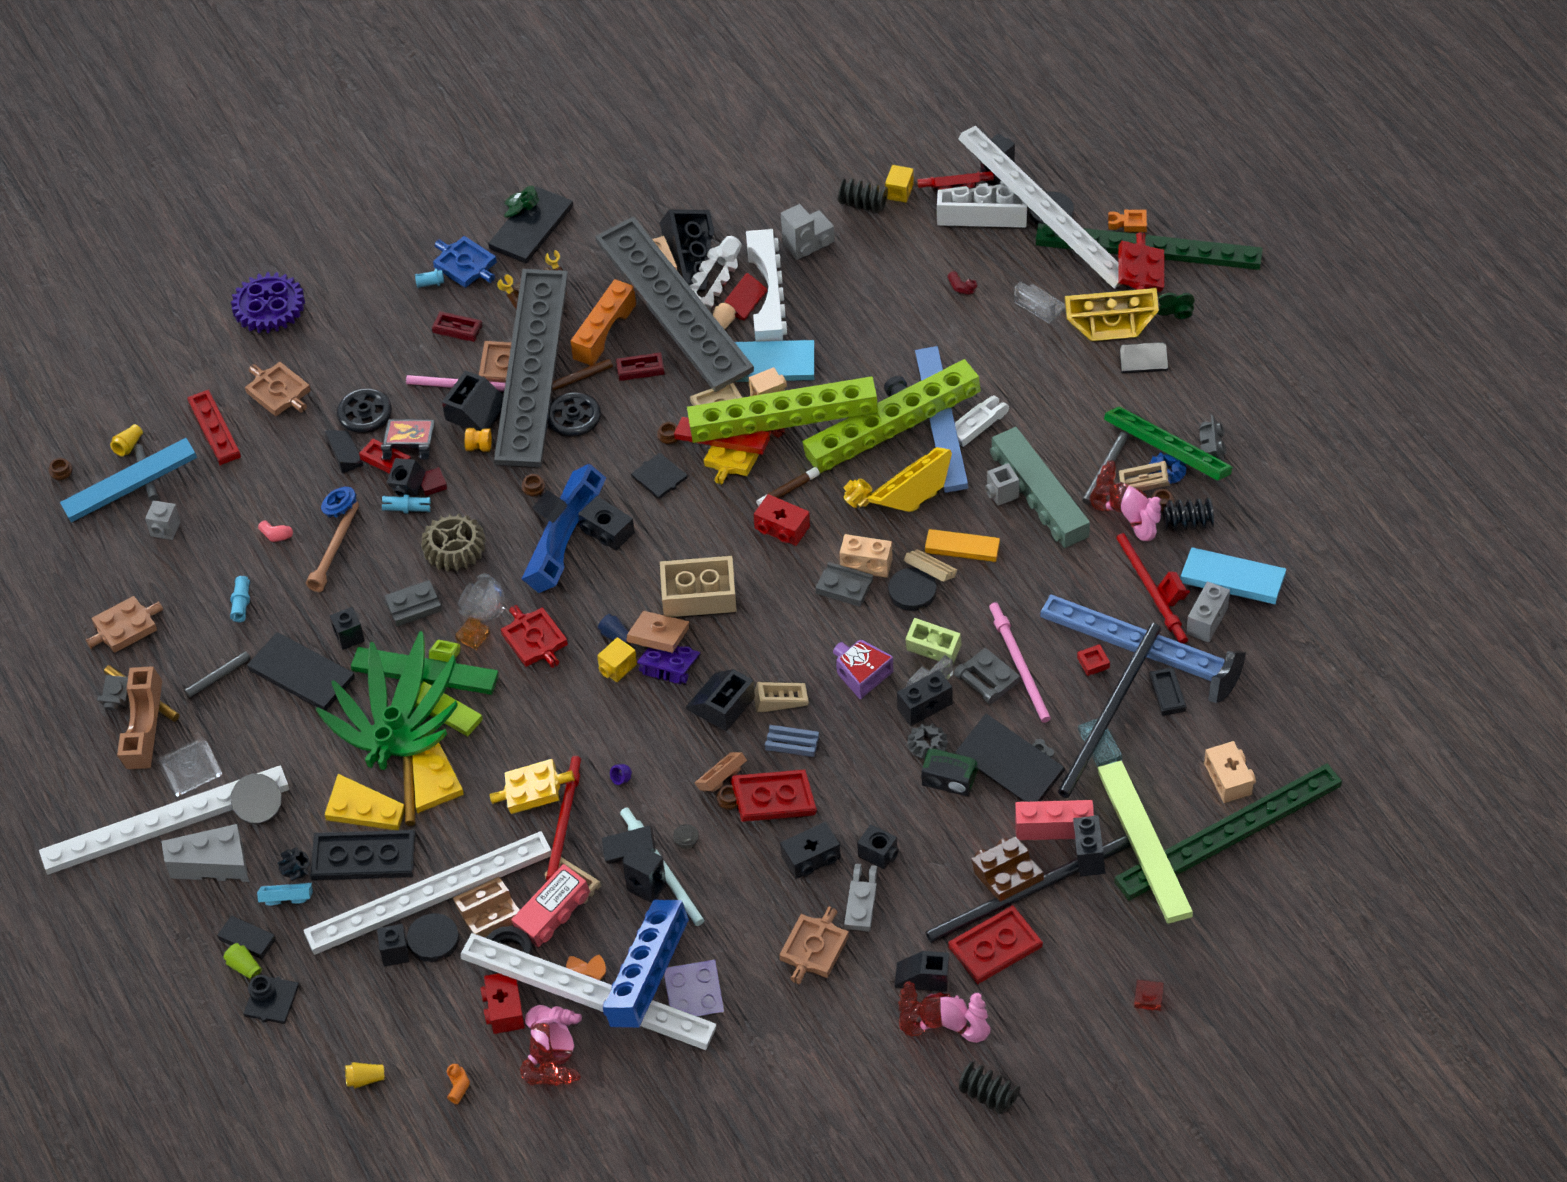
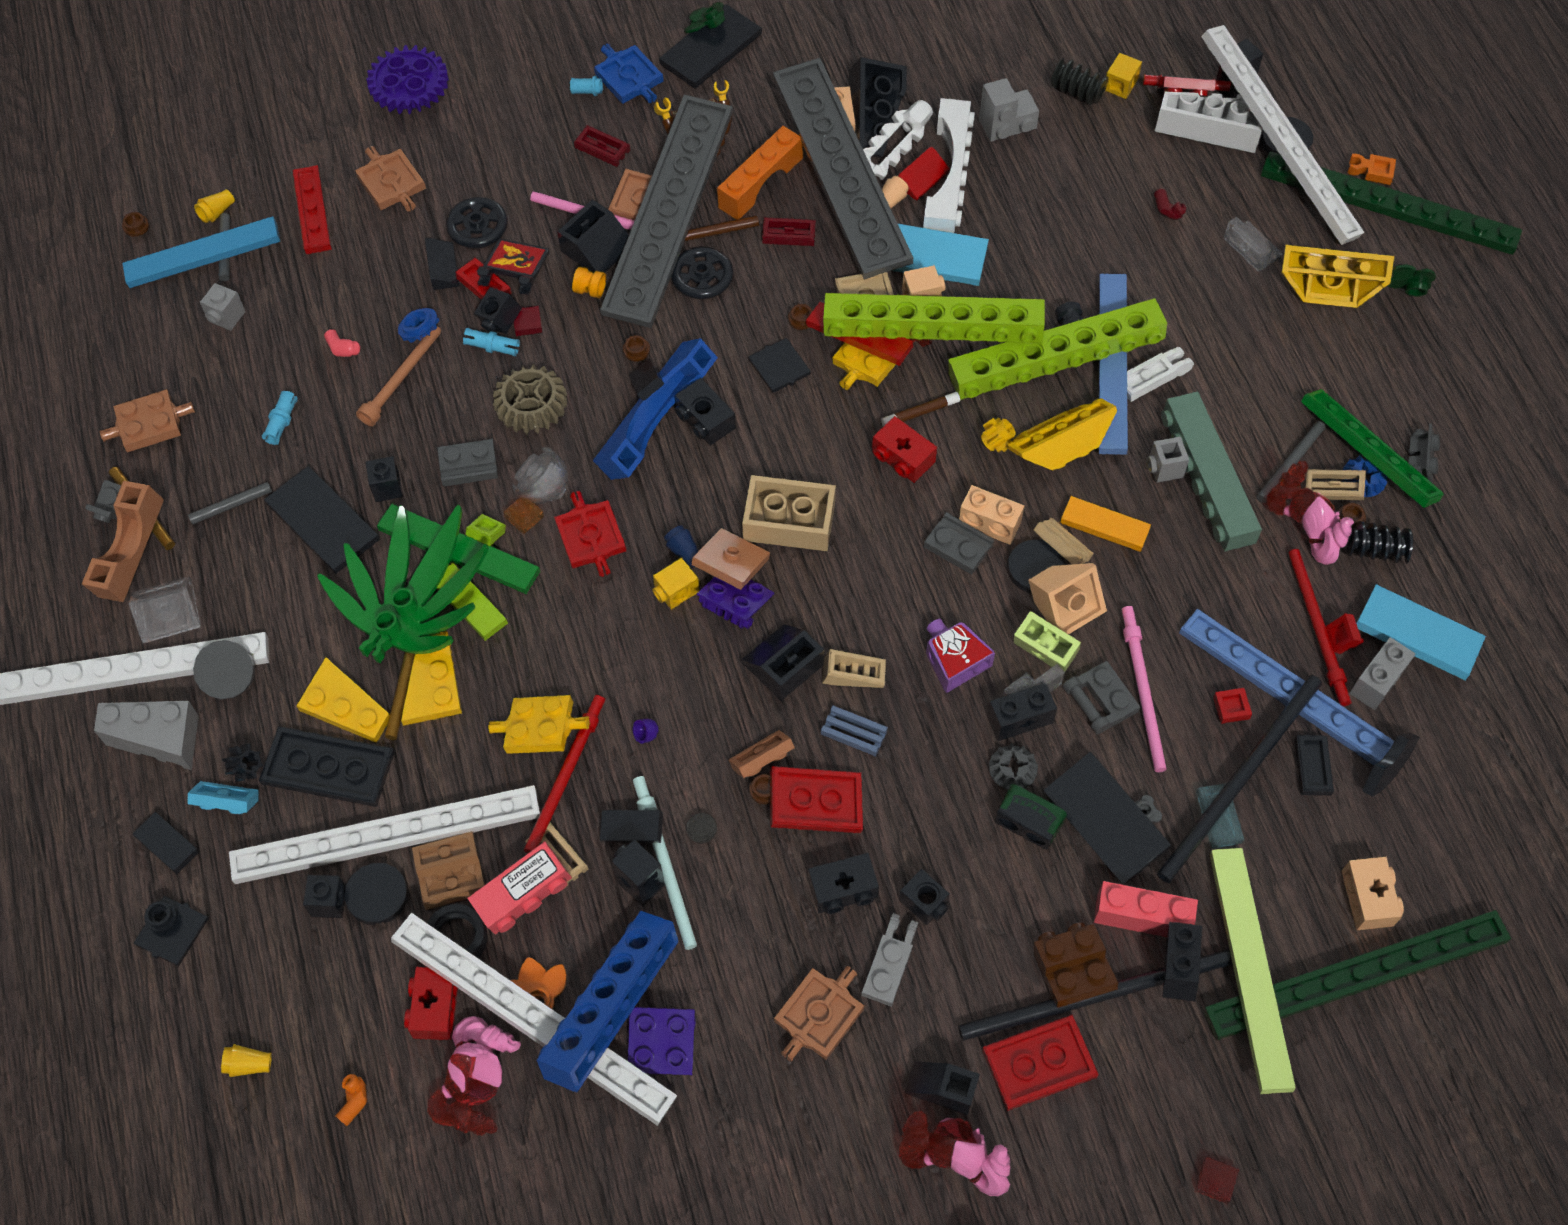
camera: 10 degrees right, 10 degrees up
(242, 961) = (150, 875): lime cone -> none
(943, 602) = (1068, 595): none -> light nougat slope
(1140, 265) = (1378, 223): red plate -> none
(1143, 357) = (1360, 335): slope -> none

